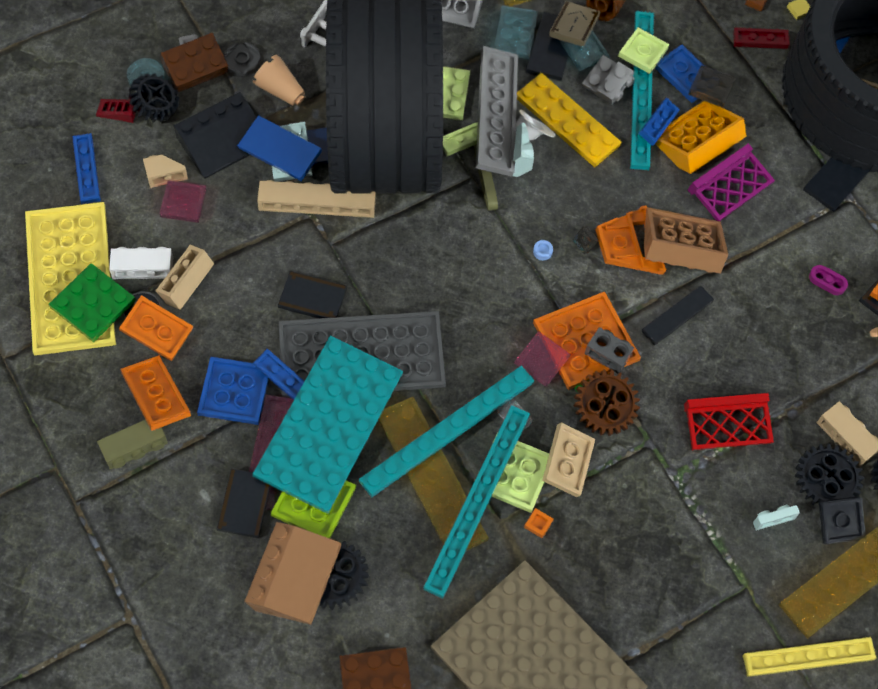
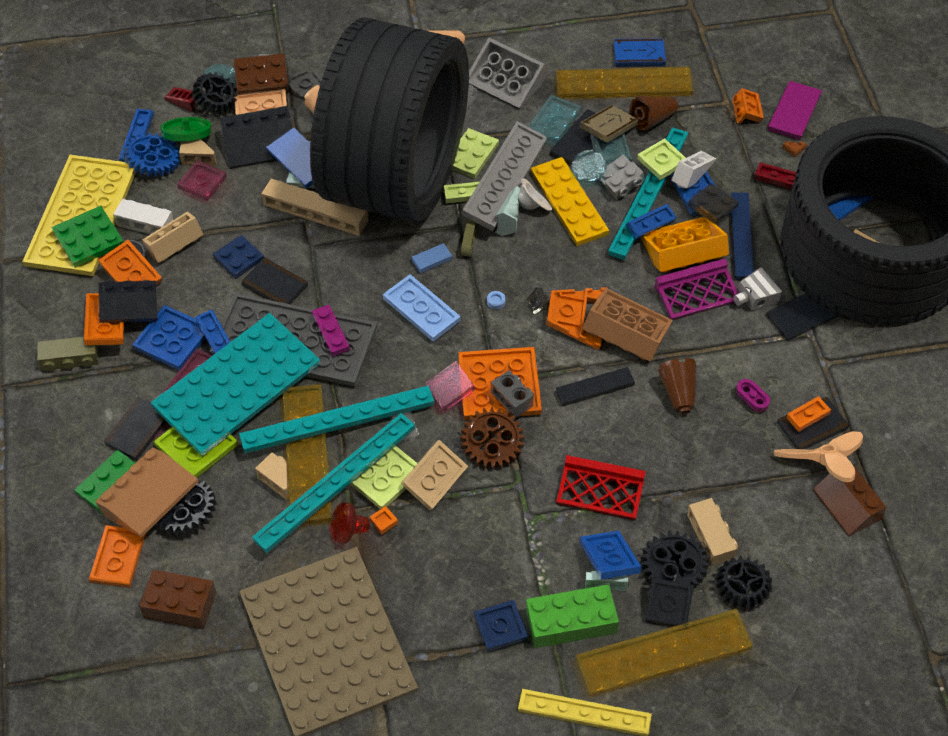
camera: 25 degrees right, 10 degrees down
(116, 186) = (152, 154): none -> blue gear
(140, 147) = (186, 129): none -> green piece
(174, 367) = (127, 301): none -> black slope
(204, 93) = (260, 100): none -> light nougat plate
(239, 570) = (103, 478): none -> green plate
(260, 277) = (238, 256): none -> dark blue plate
(288, 651) = (116, 557): none -> orange tile
(397, 334) = (330, 330): none -> magenta plate
(411, 510) = (274, 474): none -> tan slope
(459, 222) = (432, 258): none -> medium blue tile
(474, 280) = (421, 307): none -> light blue plate
(506, 540) = (347, 523): none -> clear red tile
(574, 77) = (589, 166): none -> clear light blue tile
(678, 54) = (692, 168): none -> white slope
(697, 596) = (500, 625): none -> dark blue plate
(747, 109) = (742, 237): none -> dark blue tile
(760, 290) = (680, 383): none -> reddish brown cone
(760, 564) = (572, 616): none -> bright green brick
(771, 490) = (610, 555): none -> blue plate
(789, 168) = (758, 291): none -> light grey torso

